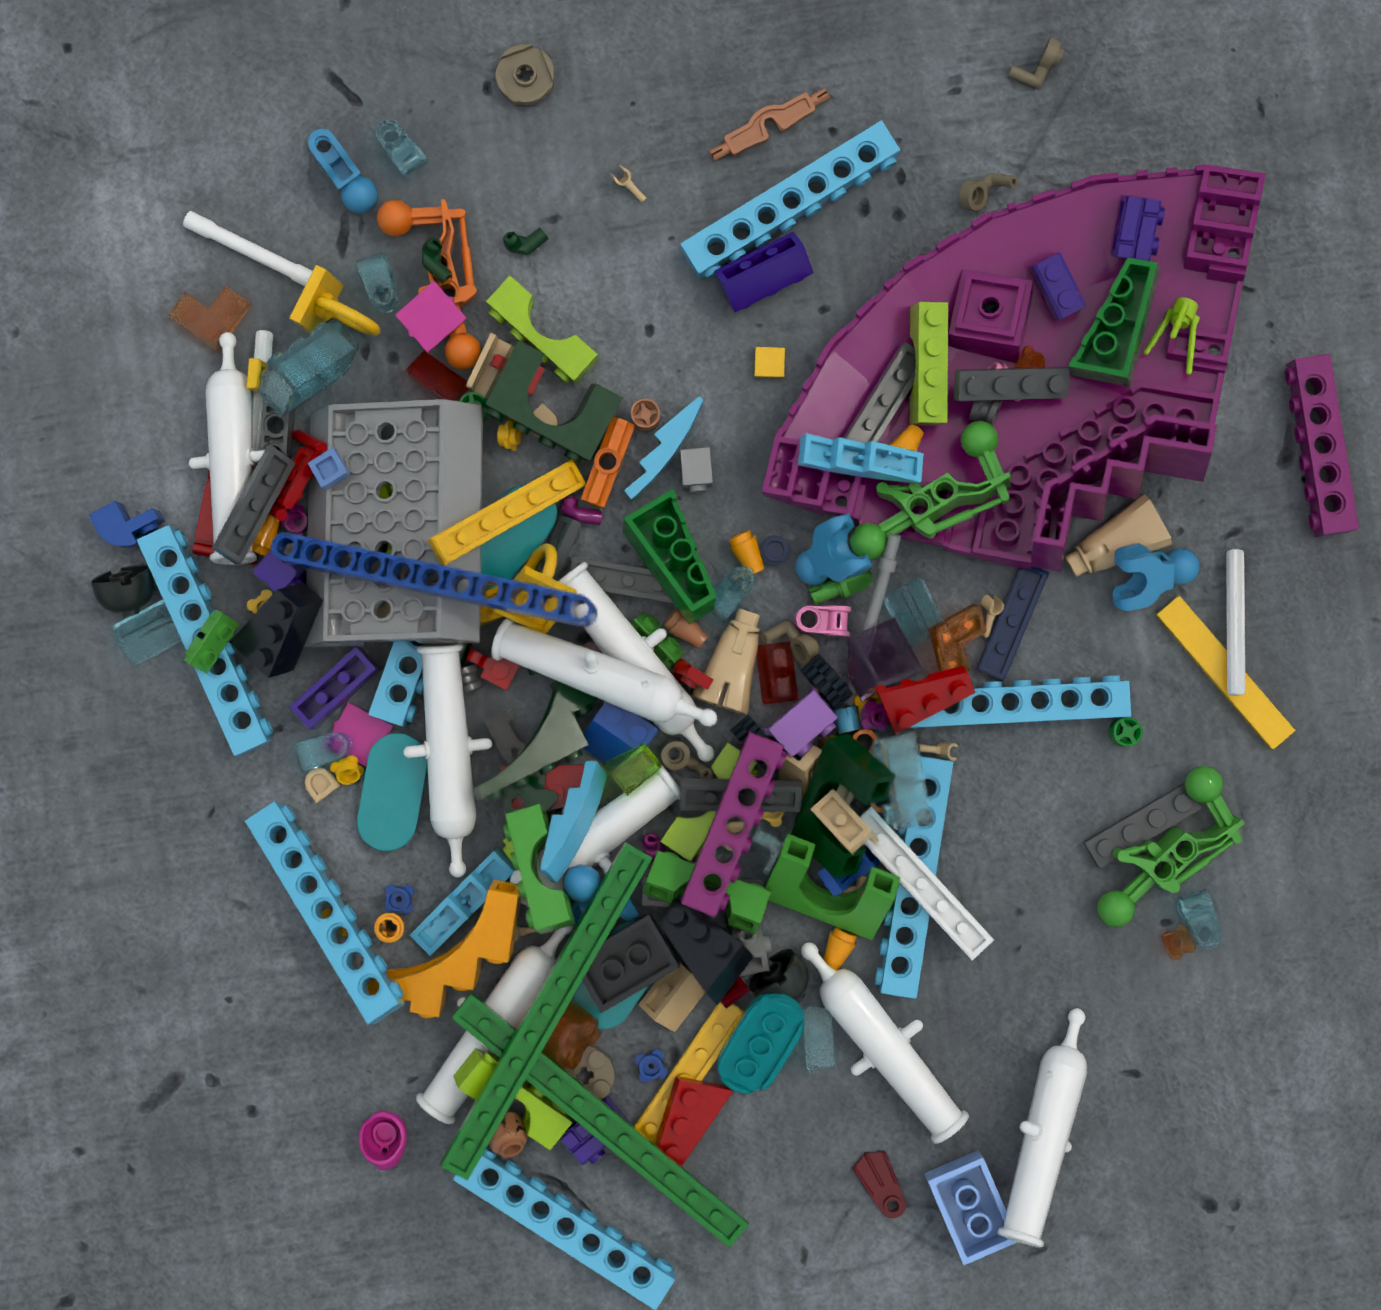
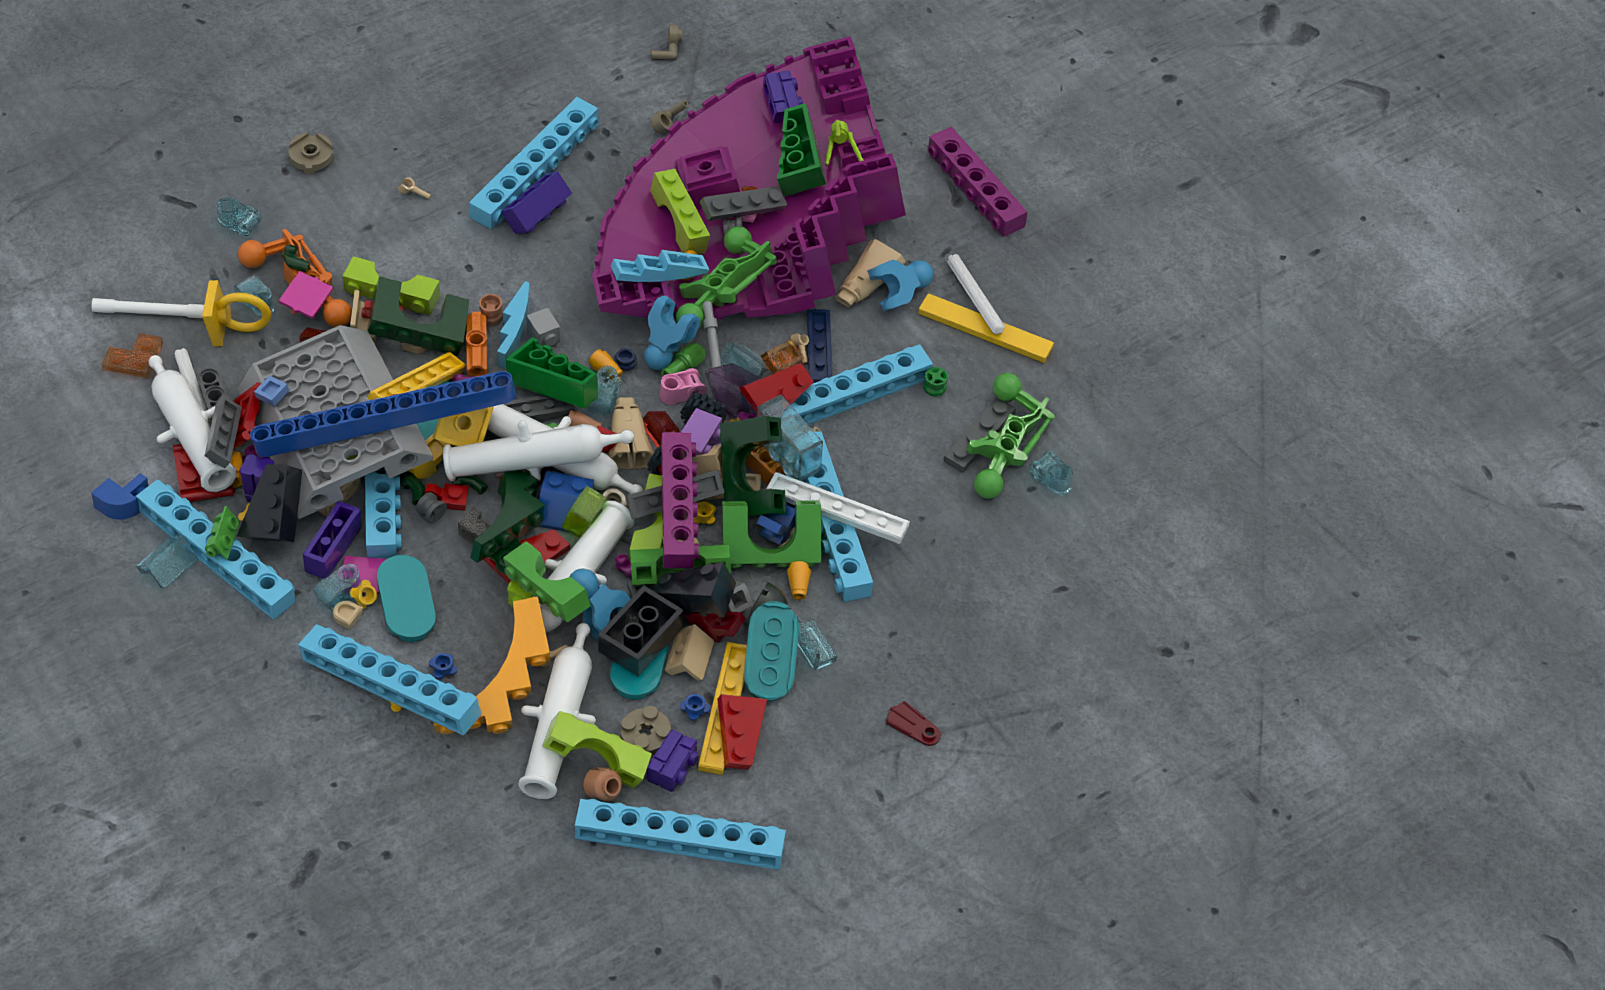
camera: 30 degrees left, 35 degrees down
(124, 590) = (138, 533): pearl dark grey cylinder -> none
(255, 370) = (189, 368): yellow tile -> none
(307, 367) = (227, 345): clear light blue brick -> none
(357, 192) = (199, 235): dark azure piece -> none
(382, 930) = (445, 672): light orange cone -> none
(382, 1131) = (506, 824): dark pink hair -> none
(448, 749) = (438, 544): white piece -> none
(462, 902) = (492, 651): medium azure slope -> none
(507, 436) = (395, 353): yellow plate -> none
(524, 245) = (355, 245): dark green arm -> none
(545, 1011) = (594, 666): green plate -> none
(570, 829) = (558, 548): medium azure slope -> none
(572, 1036) = (617, 692): clear orange brick -> none
(608, 1126) = (673, 735): green plate -> none
(769, 362) = (566, 257): yellow tile -> none
(770, 842) = (709, 522): clear light blue panel -> none
(783, 116) = (491, 137): nougat piece -> none
(802, 645) = (671, 405): dark tan plate -> none
(843, 821) = (761, 473): tan panel -> none
(885, 397) = (661, 232): dark grey plate -> none
(886, 1047) = (868, 624): white piece -> none
(969, 1206) = (988, 703): light blue brick -> none
(1046, 1137) = (1017, 634): white piece -> none
(1057, 286) = (746, 146): dark purple brick -> none
(1170, 942) = (1041, 488): clear orange plate -> none

